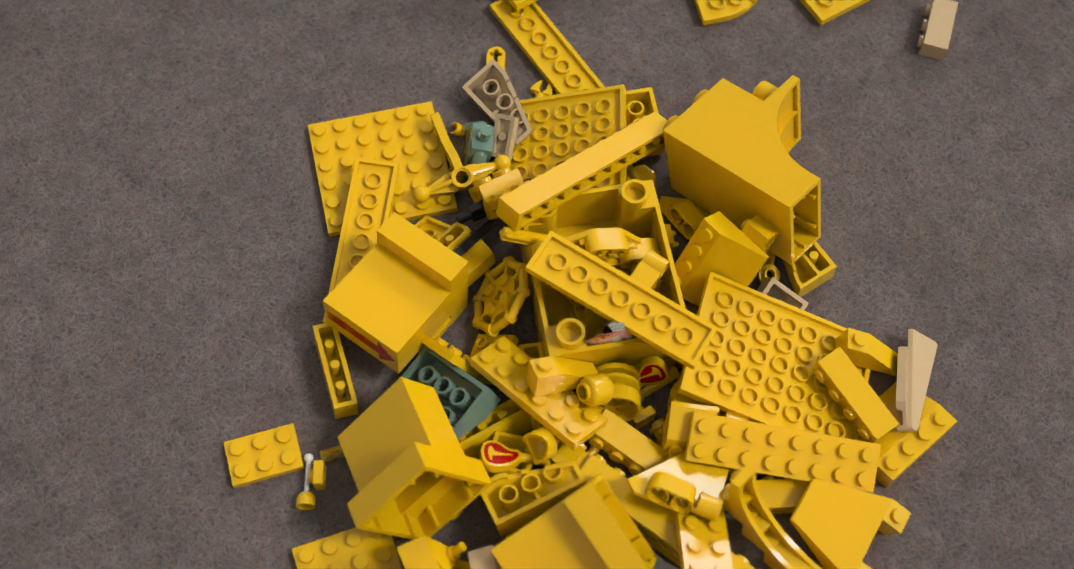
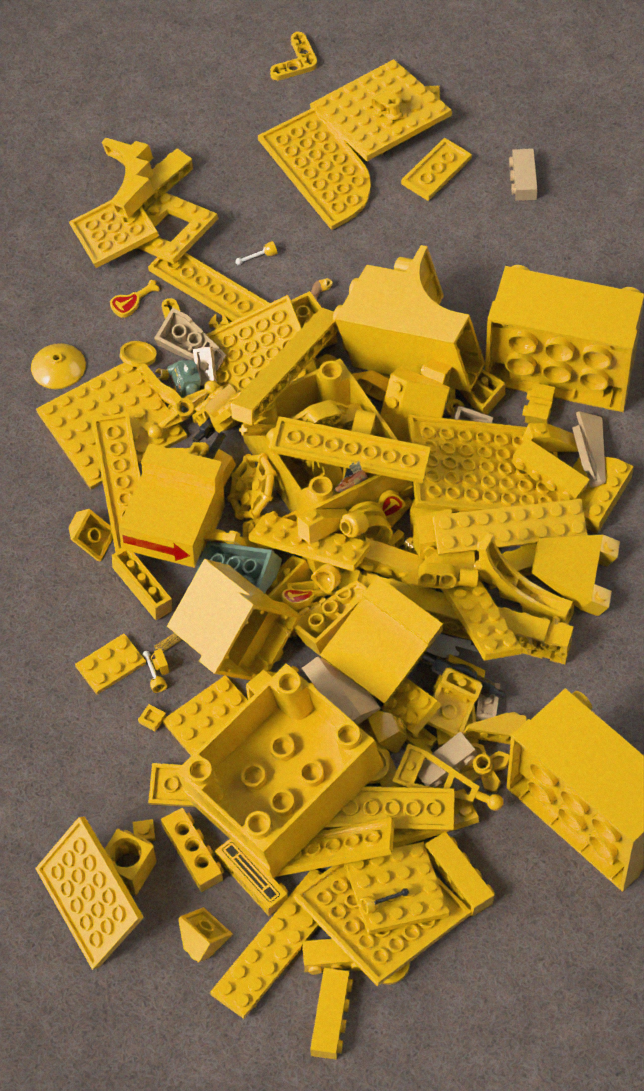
camera: 15 degrees left, 5 degrees down
(281, 541) = (151, 717): none -> yellow plate
(303, 290) = (91, 533): none -> yellow slope
(354, 92) = (60, 372): none -> yellow dish
(440, 98) = (137, 352): none -> yellow piece
(451, 40) = (127, 304): none -> yellow piece
(626, 27) = (269, 249): none -> hinge
(667, 84) = (321, 286): none -> arm
(868, 305) = (539, 404): none -> yellow brick
(927, 237) = (564, 336): none -> yellow piece

